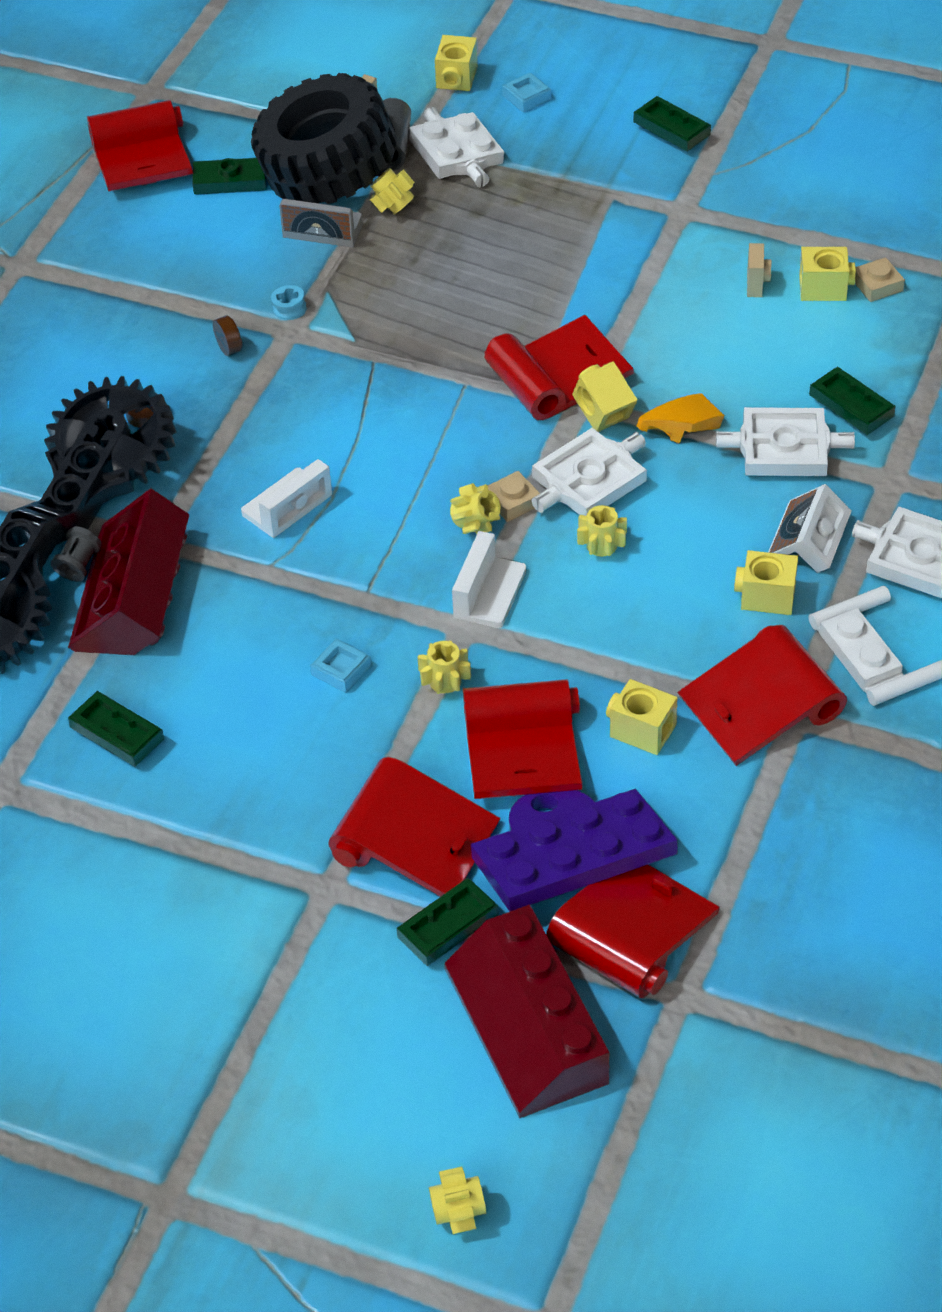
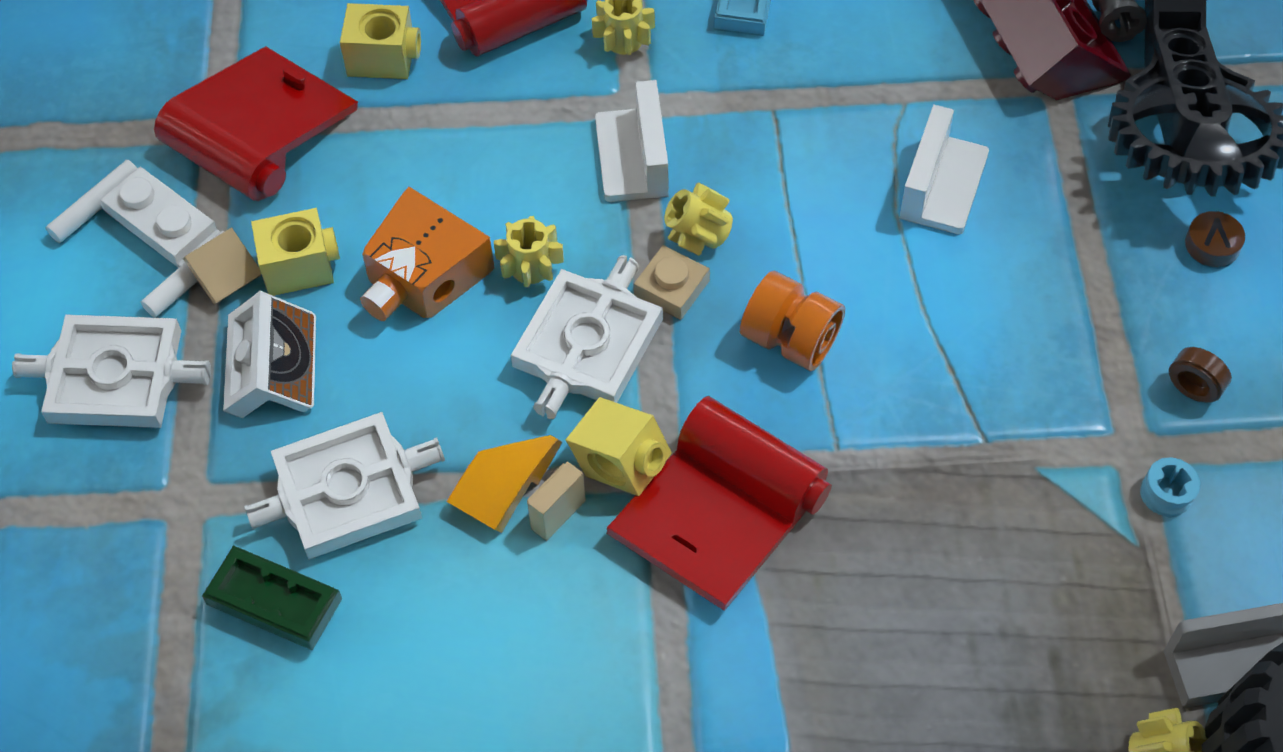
camera: 155 degrees right, 10 degrees up
(453, 430) = (788, 318): none -> orange wheel
(656, 388) = (556, 500): none -> tile
(678, 549) = (422, 258): none -> orange torso
(823, 593) = (222, 266): none -> tan tile

